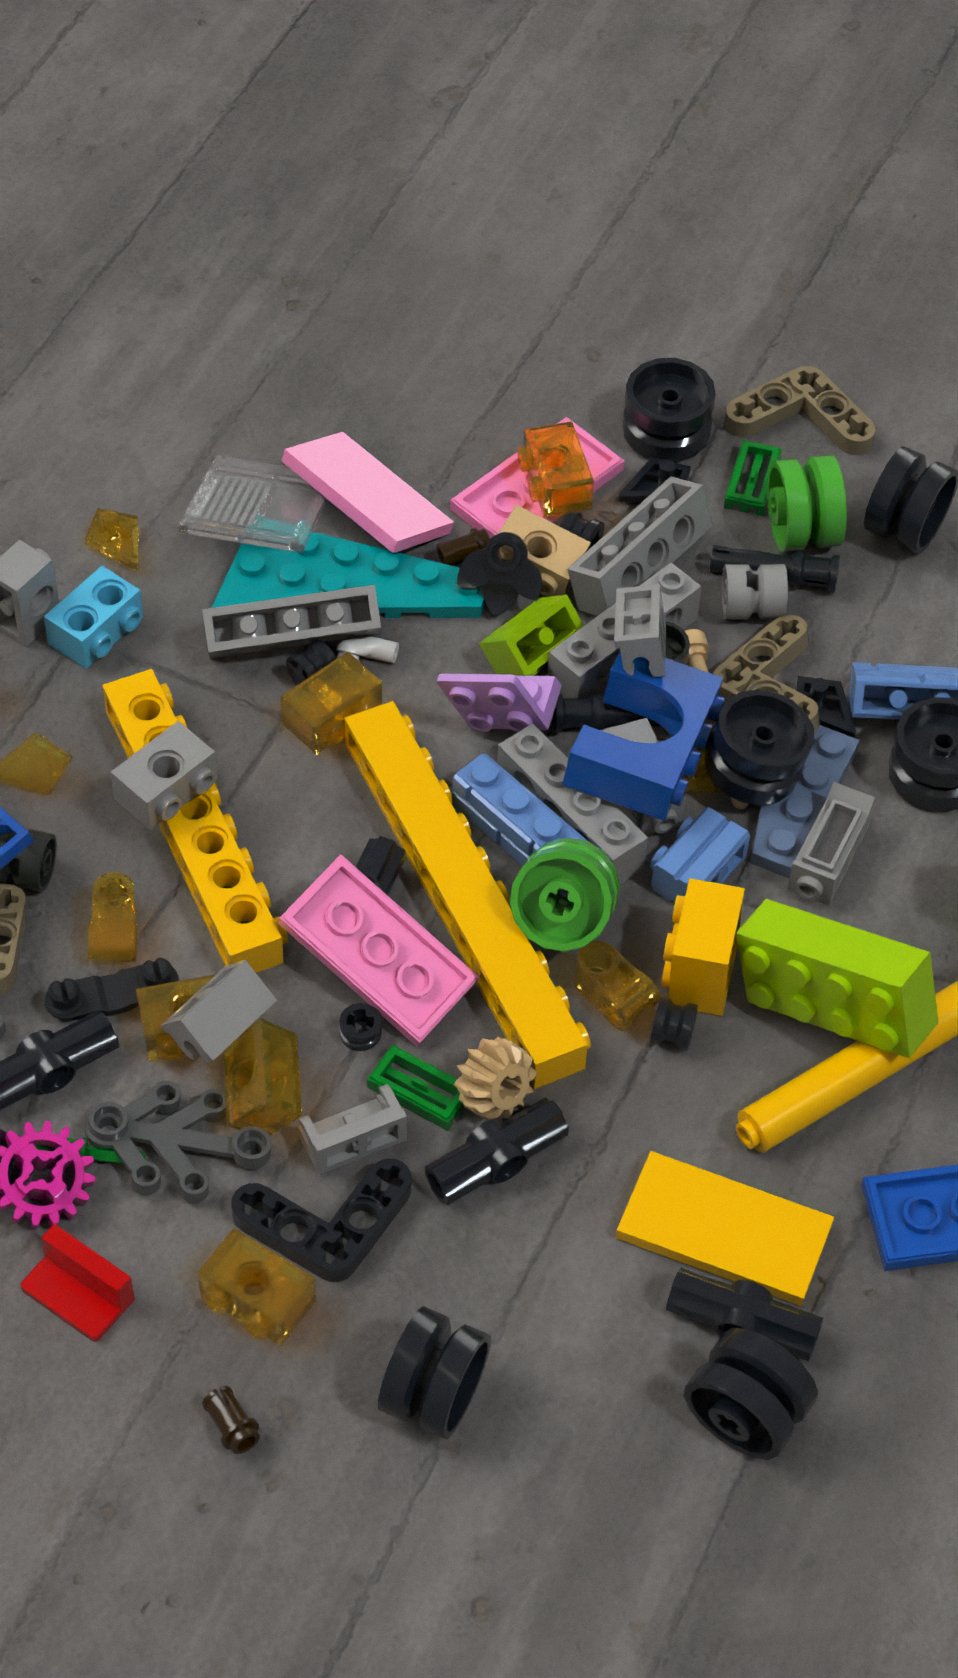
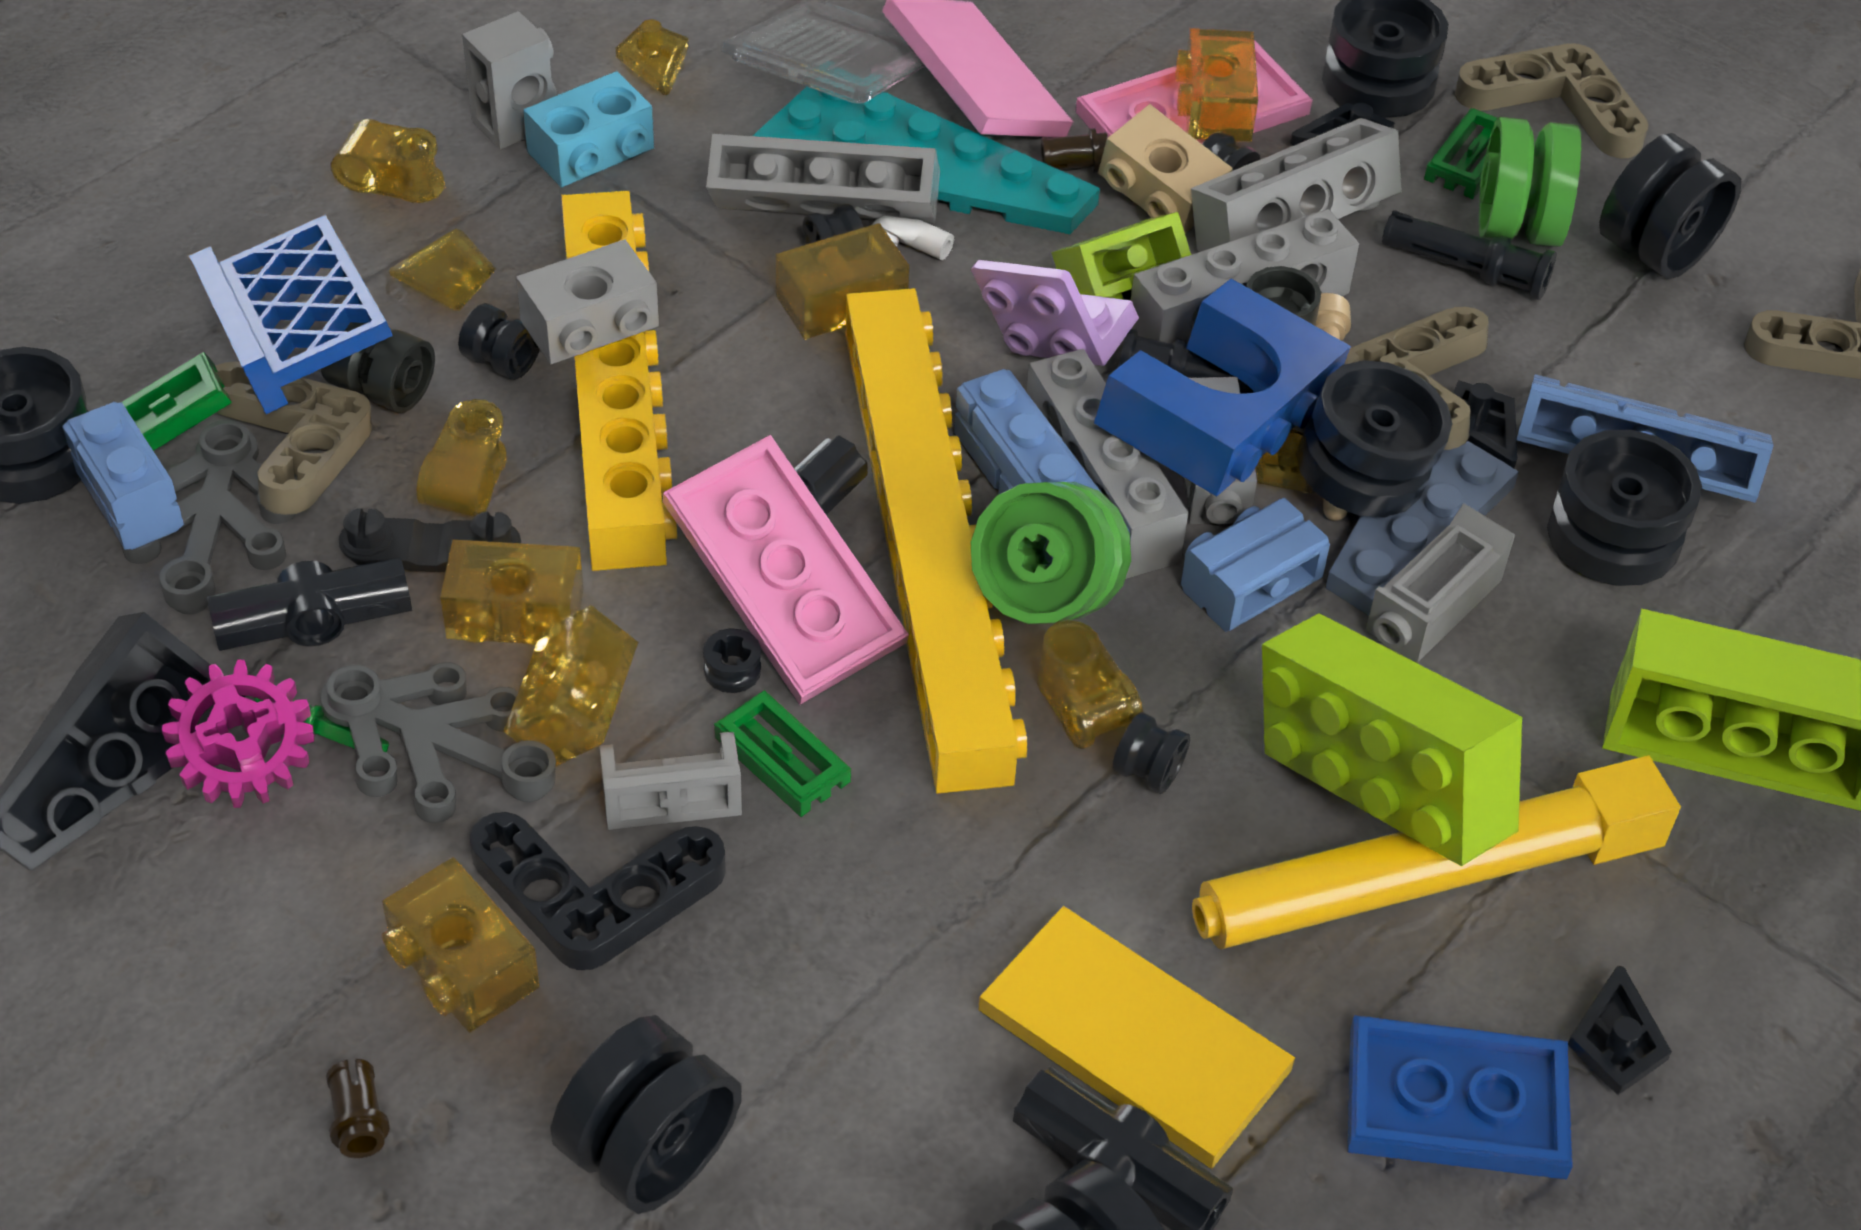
camera: 15 degrees right, 5 degrees down
(78, 1285) = (232, 884): red panel -> none
(97, 816) = (493, 338): none -> black wheel
(219, 1012) = (542, 586): light grey hinge -> none
(495, 1078) = (879, 759): tan gear -> none
(496, 1150) = (851, 853): black piece -> none
(501, 578) = (1102, 185): black plate -> none
(641, 627) = (1259, 257): light grey hinge -> none
(703, 945) = (1215, 660): yellow brick -> none
(754, 591) = (1430, 270): light grey wheel -> none

